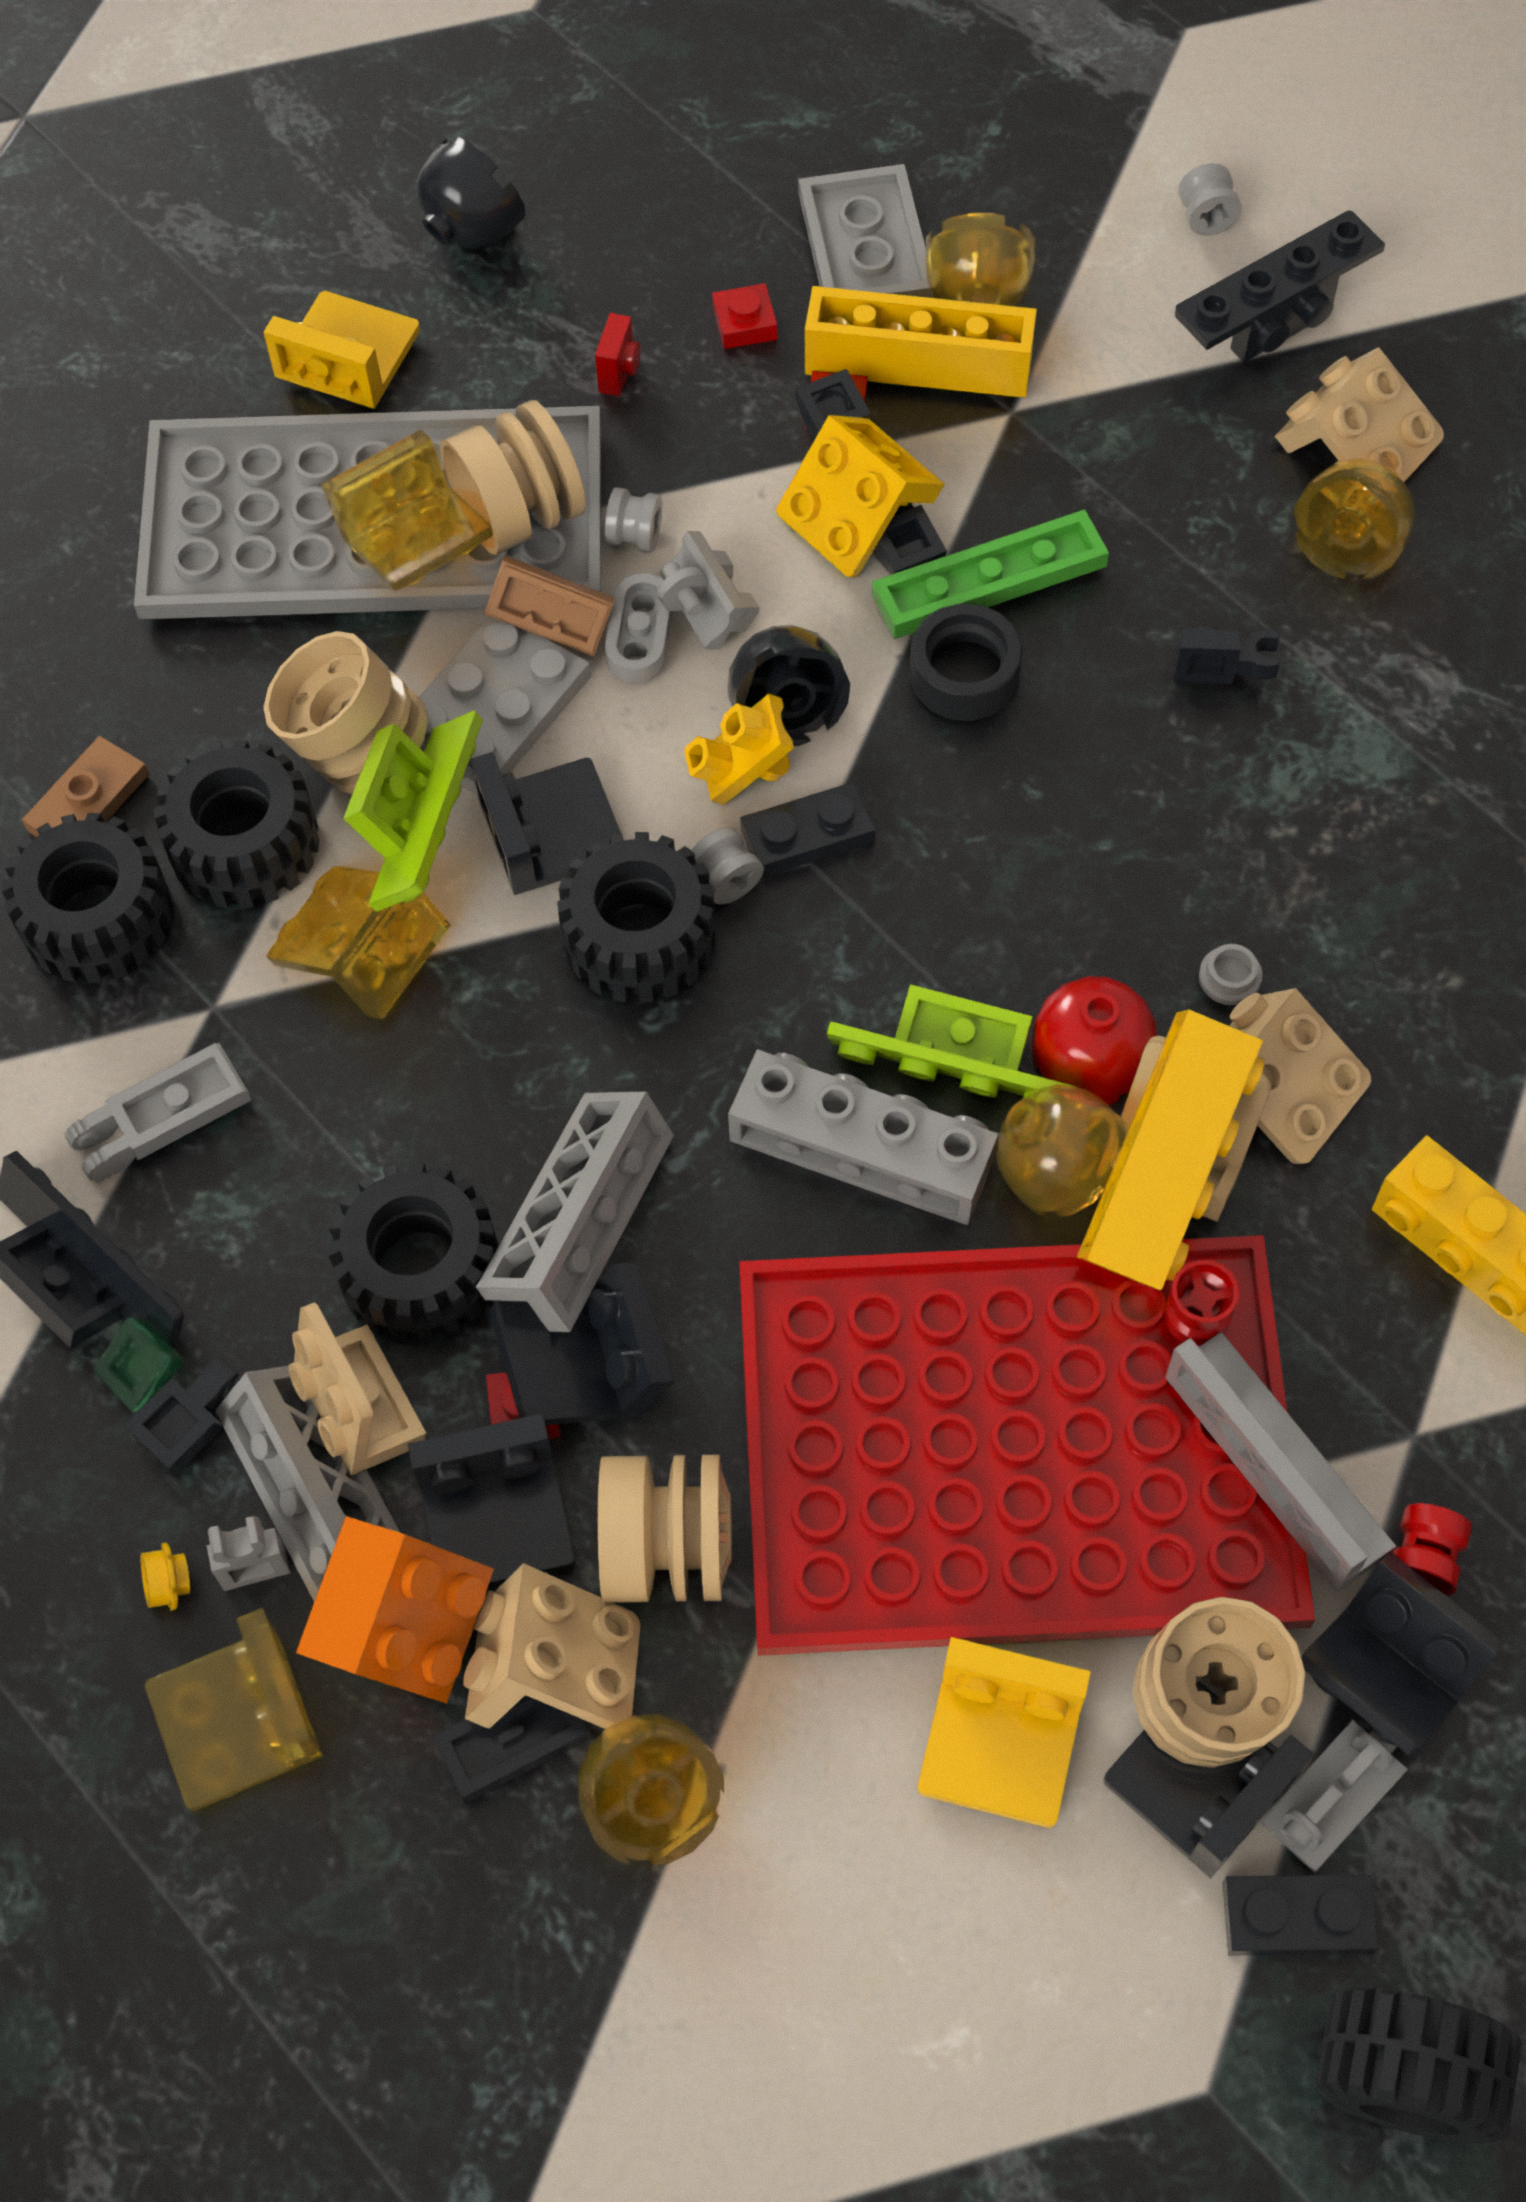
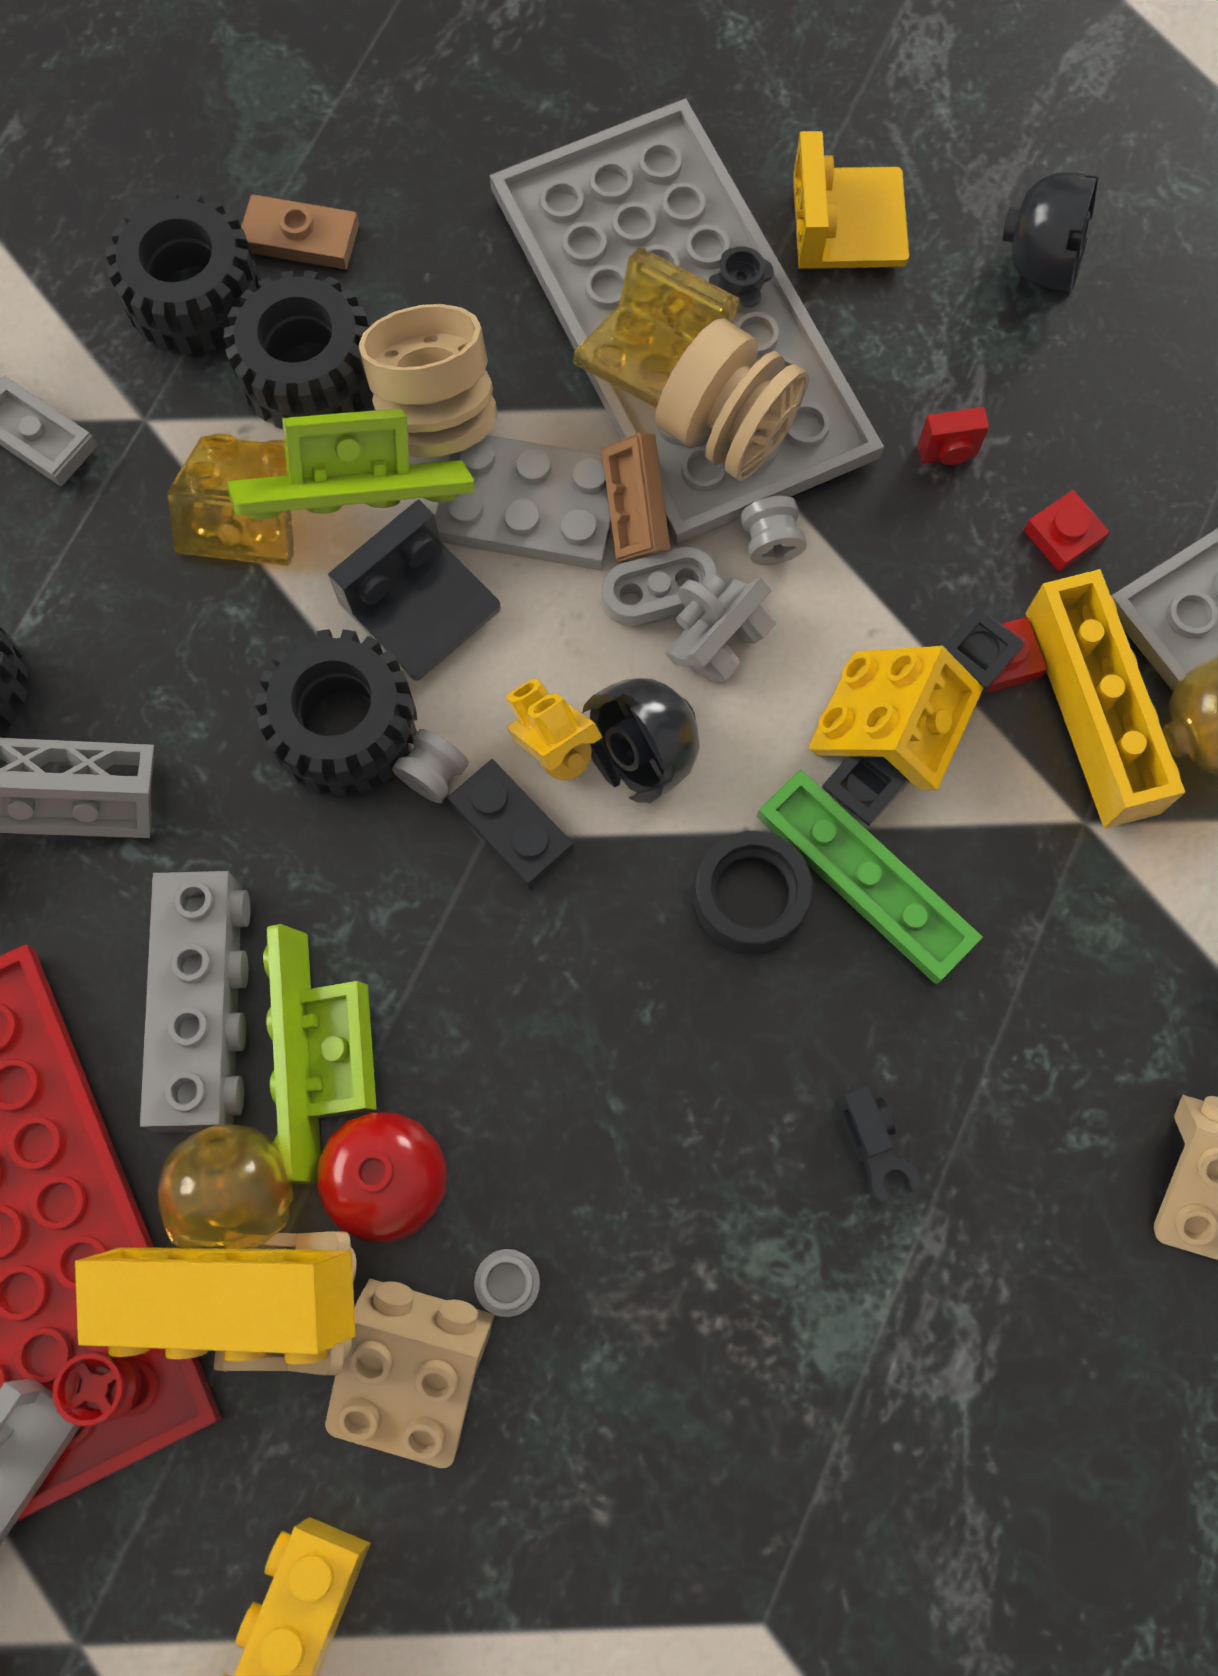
camera: 65 degrees right, 10 degrees up
(369, 435) = (744, 263): none -> black plate
(1354, 518) = (1104, 1218): clear yellow cylinder -> none

